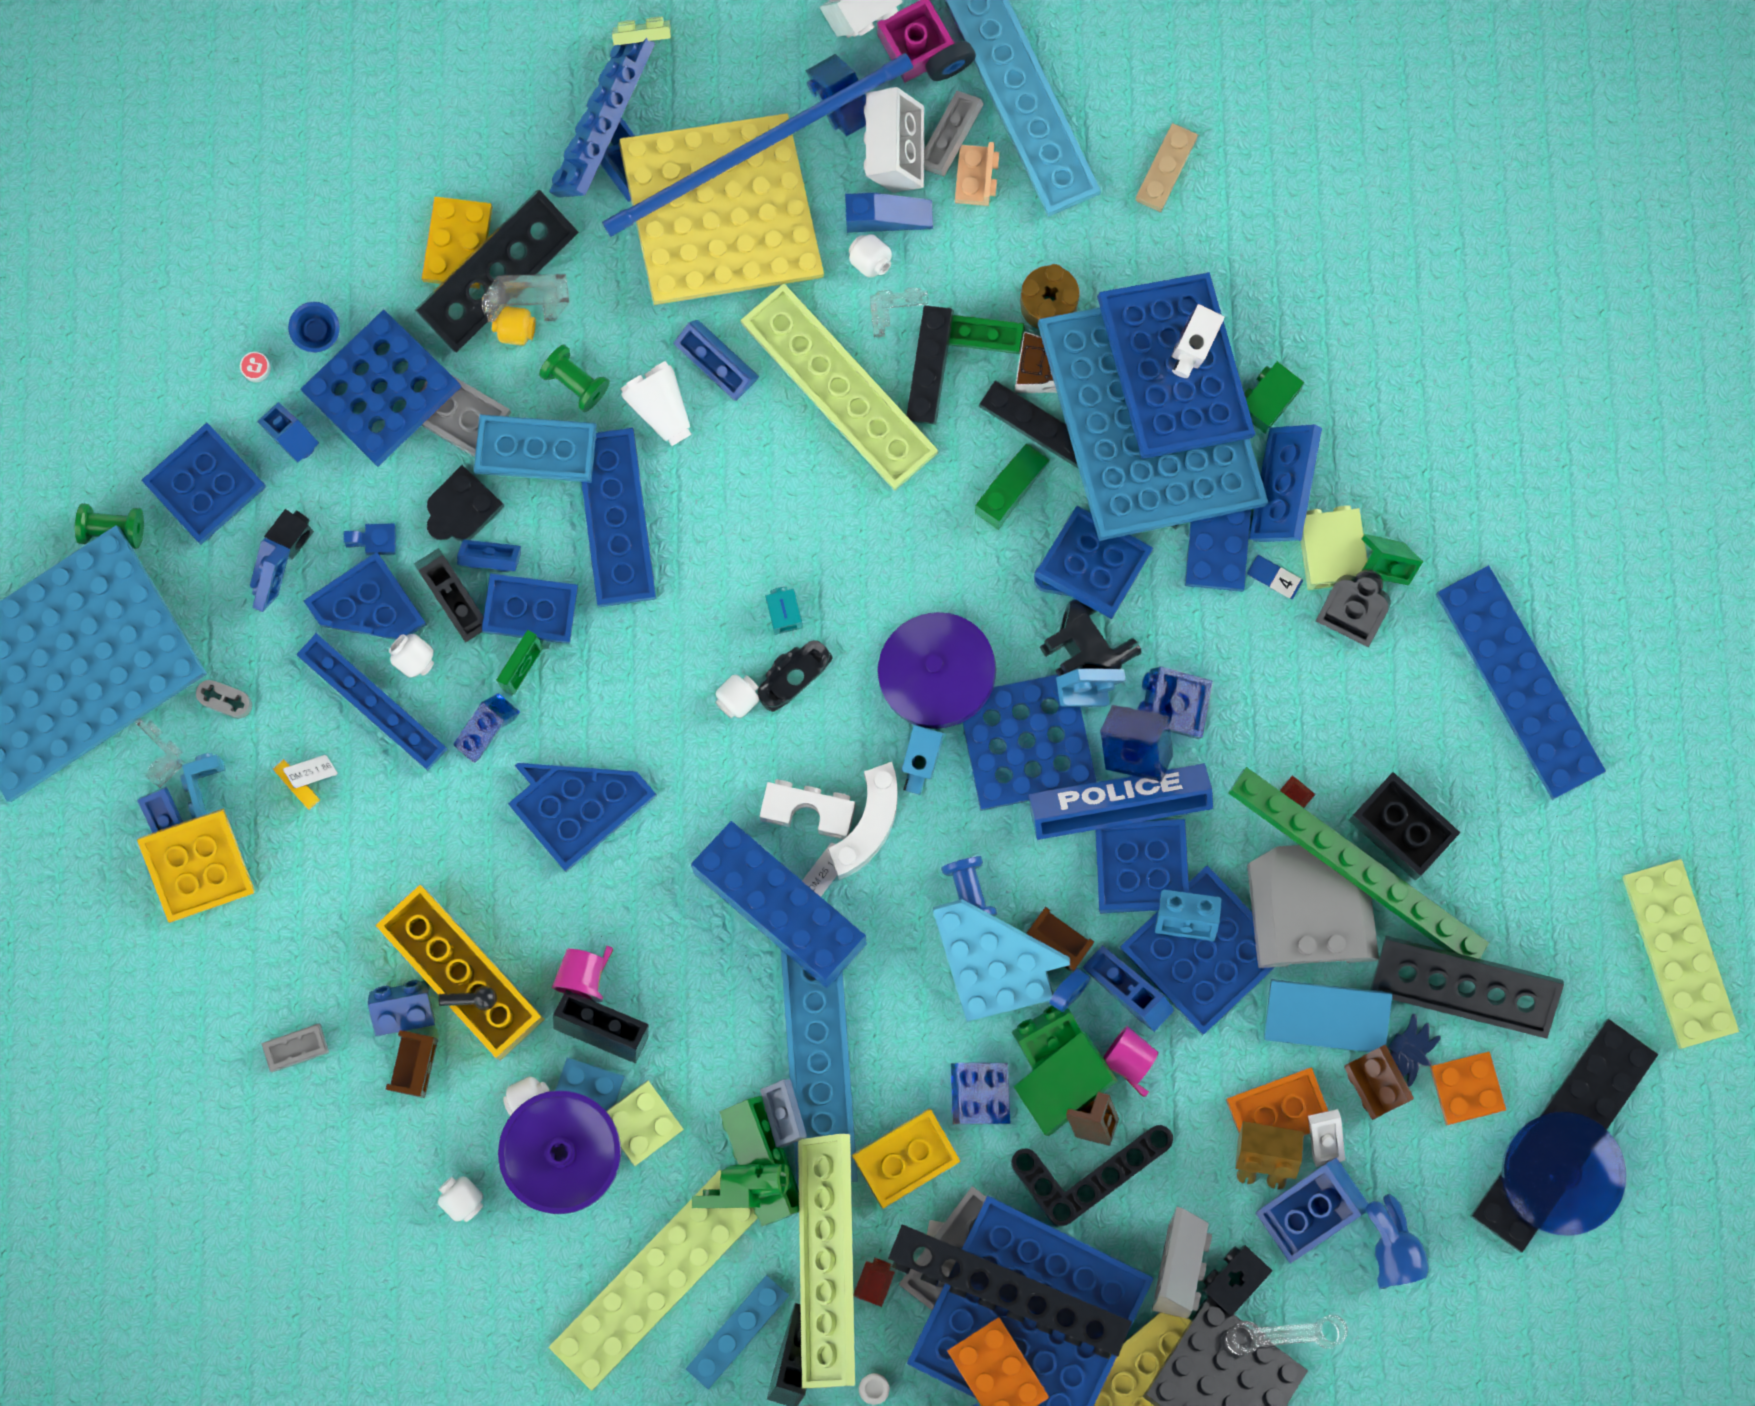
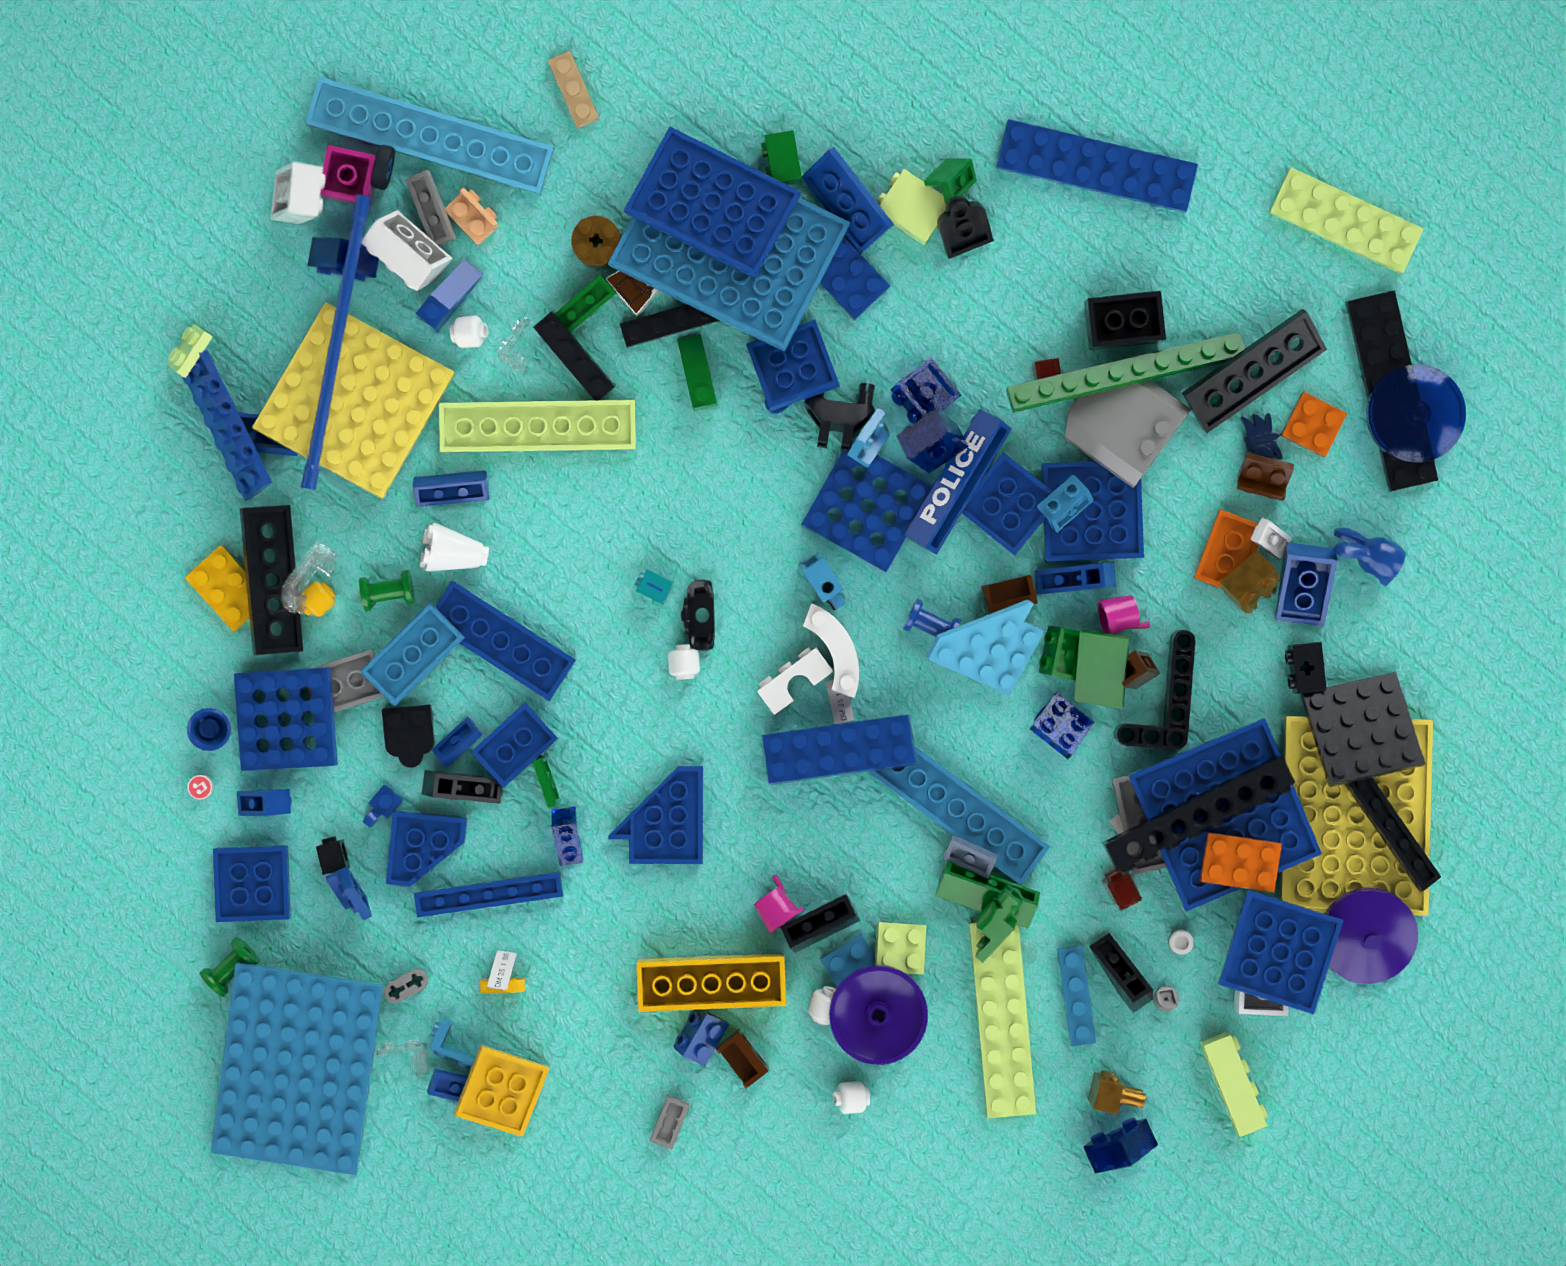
camera: 55 degrees left, 10 degrees up
(411, 655) = (481, 845): white head -> none
(483, 998) = (742, 982): black bar -> none
(826, 1262) = (1085, 909): yellowish green plate -> none
(905, 1158) = (1061, 804): yellow plate -> none
(937, 670) = (775, 523): dark purple dish -> none
(1069, 990) = (1047, 615): blue beam -> none
(1182, 1265) = (1271, 694): light grey slope -> none
(1200, 333) = (707, 168): white torso -> none
(1275, 577) = (898, 258): sticker -> none
(1287, 1334) = (1365, 666): clear piece -> none
(1327, 1016) = (1197, 471): dark azure tile -> none

